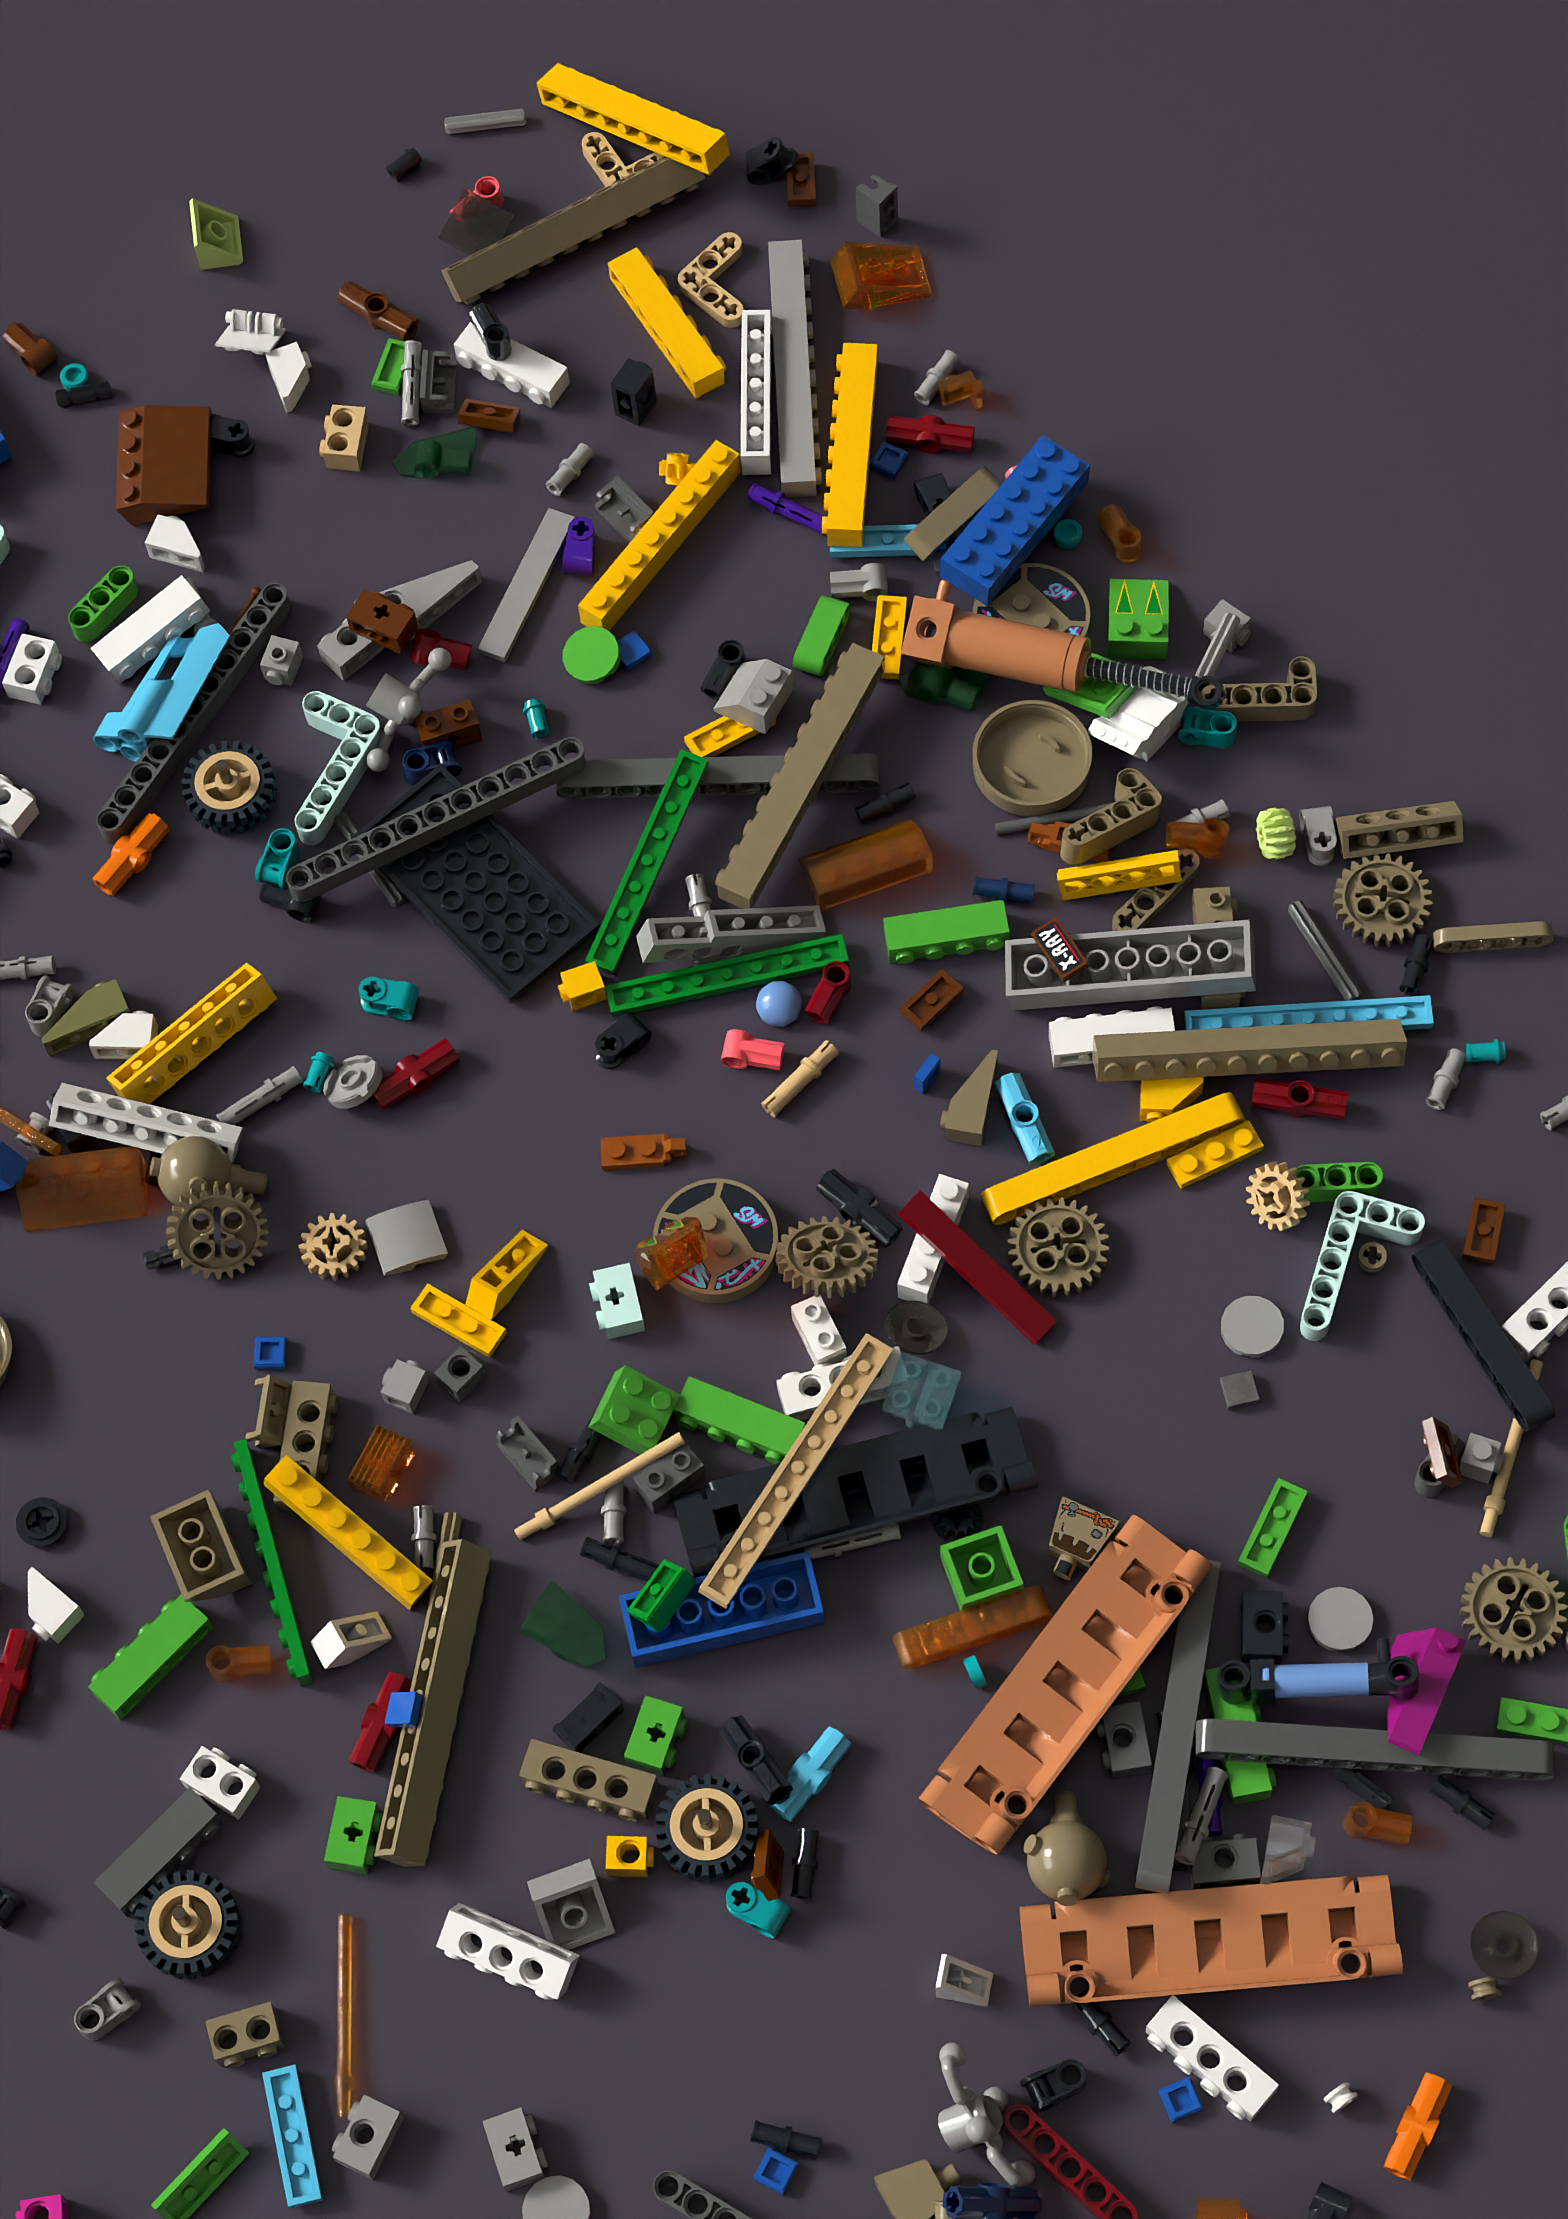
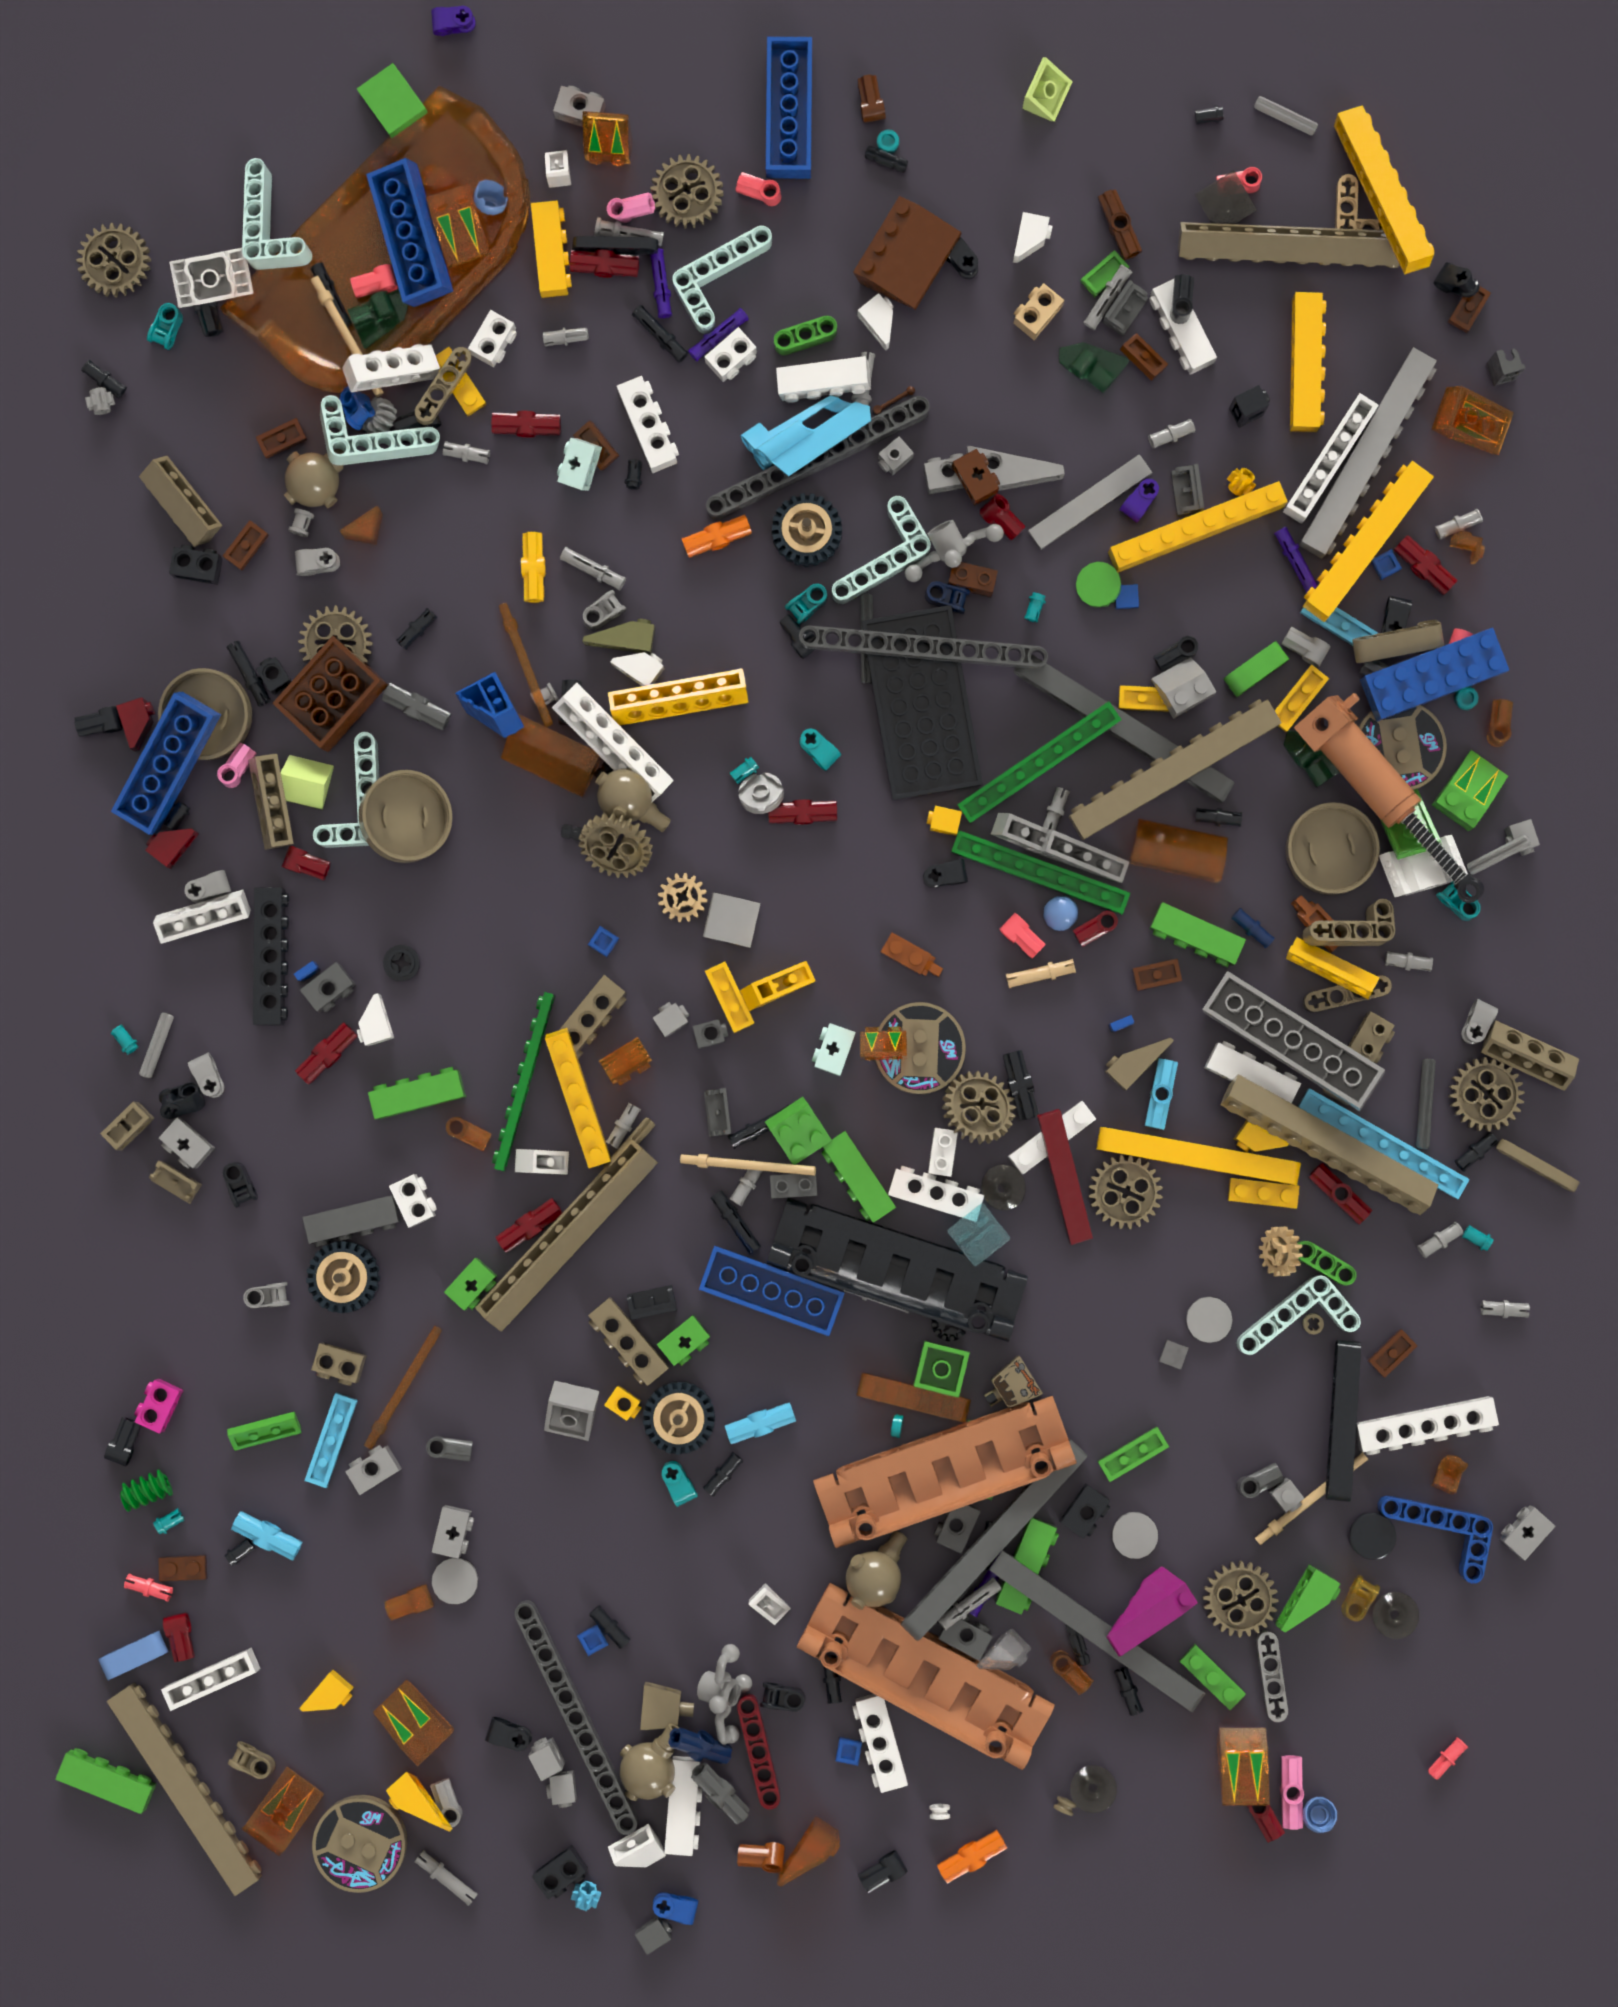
camera: 30 degrees right, 20 degrees up
(200, 1548) = (485, 1047): dark tan slope -> none
(247, 336) = (1023, 189): white hinge -> none
(272, 1412) = (580, 985): dark tan hinge -> none
(290, 1078) = (697, 764): light grey pin -> none
(403, 1709) = (544, 1232): tile -> none
(451, 2046) = (452, 1448): none -> dark grey piece
(556, 1961) = (528, 1417): white brick -> none
(565, 1628) = (673, 1239): clear green panel -> none
(662, 1595) = (739, 1263): green slope -> none
(705, 280) = (1356, 341): tan beam -> none
(764, 1771) = (732, 1410): black piece -> none
(768, 1865) = (699, 1465): reddish brown plate -> none
(795, 1471) = (868, 1240): tan plate -> none
(1060, 949) = (1255, 1004): tile -> none
(1064, 816) = (1318, 898): dark grey bar -> none
(1205, 838) = (1402, 978): clear orange piece -> none
(1273, 1681) = (1064, 1556): piece -> none
(1275, 833) = (1450, 1006): yellowish green gear -> none
(1284, 693) = (1525, 911): dark tan beam -> none
(1442, 1452) = (1265, 1478): reddish brown plate -> none

